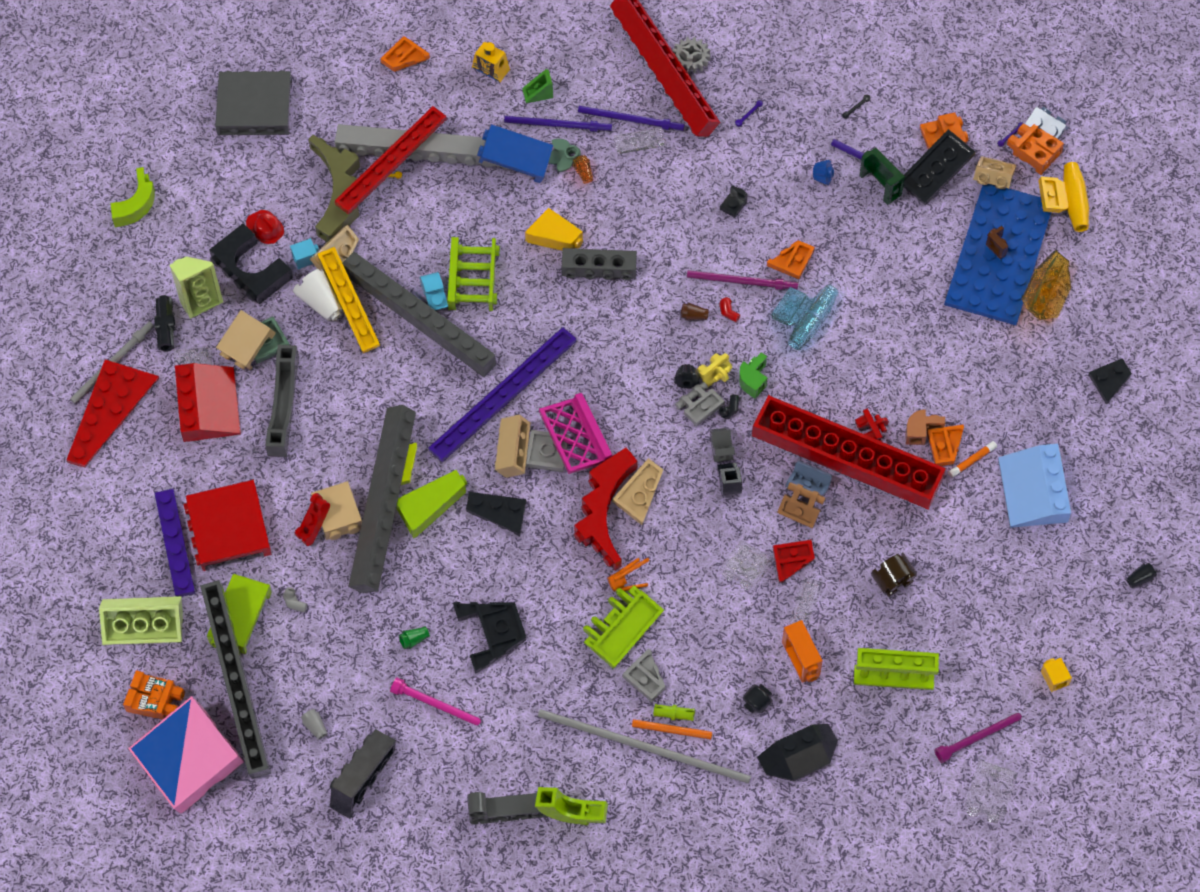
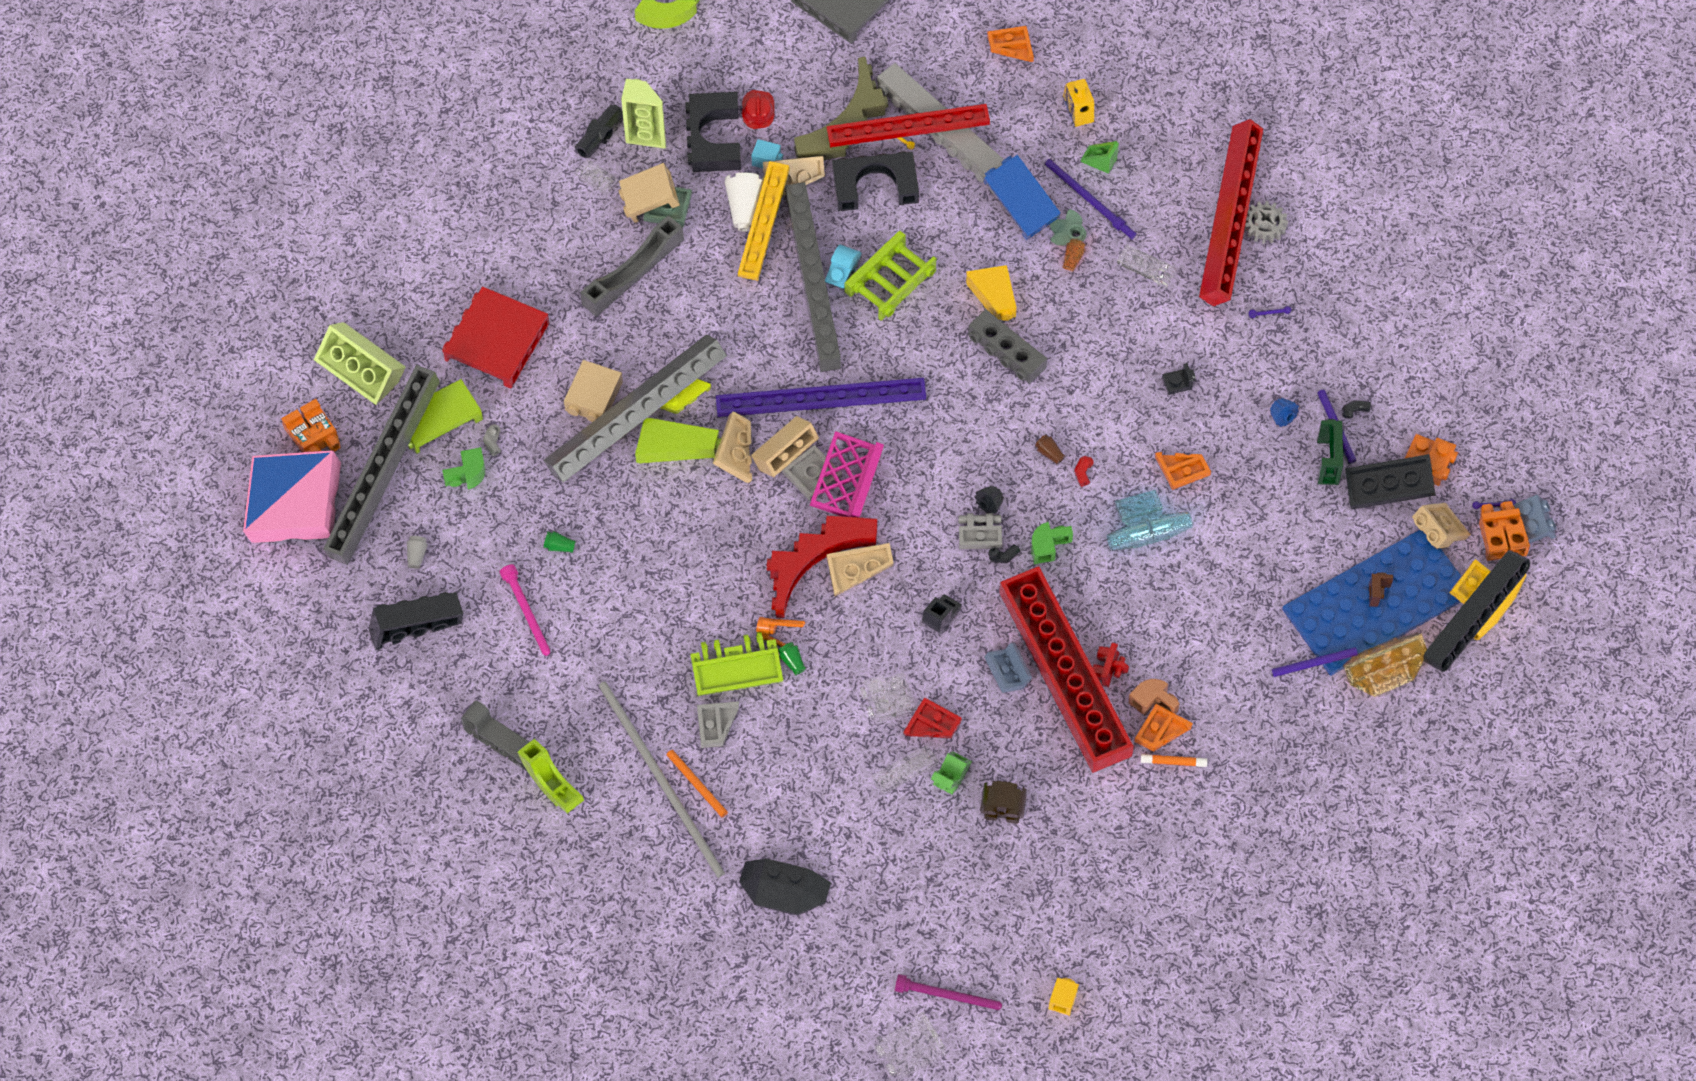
camera: 40 degrees right, 0 degrees up
(111, 401) = (498, 165): red wing -> none
(136, 338) = (568, 127): light grey bar -> none
(174, 543) = (443, 319): dark purple plate -> none
(206, 401) = (572, 221): slope -> none
(300, 633) = (471, 472): none -> bright green brick
(313, 519) = (563, 383): red plate -> none
(406, 195) = (897, 166): none -> black arch
(476, 475) = (734, 448): none -> tan wing
(500, 510) = (726, 493): black wing -> none
(500, 626) = (635, 590): black wing -> none
(656, 589) = (791, 657): none -> green cone
(665, 123) = (1183, 266): dark purple bar -> none
(674, 712) = (710, 770): lime pin -> none
(716, 370) = (1020, 512): light yellow hips -> none
(721, 444) = (963, 580): dark grey brick -> none
(757, 698) = (789, 813): black head -> none
(778, 284) = (1148, 479): magenta bar -> none
(799, 510) = (976, 686): medium nougat plate -> none
(802, 651) = (860, 803): orange window -> none
(839, 582) = (951, 772): none -> bright green brick
(863, 136) = (1353, 406): none -> black arm
(866, 98) = (1391, 375): black hinge -> none
(896, 668) = (923, 879): lime fence -> none
(1001, 323) = (1314, 662): none -> dark purple bar
(1035, 486) = (1204, 825): light blue slope -> none
(1075, 209) = (1476, 611): none -> black beam
(1110, 378) = (1369, 785): black wing -> none
(1143, 574) = (1224, 974): black cone -> none

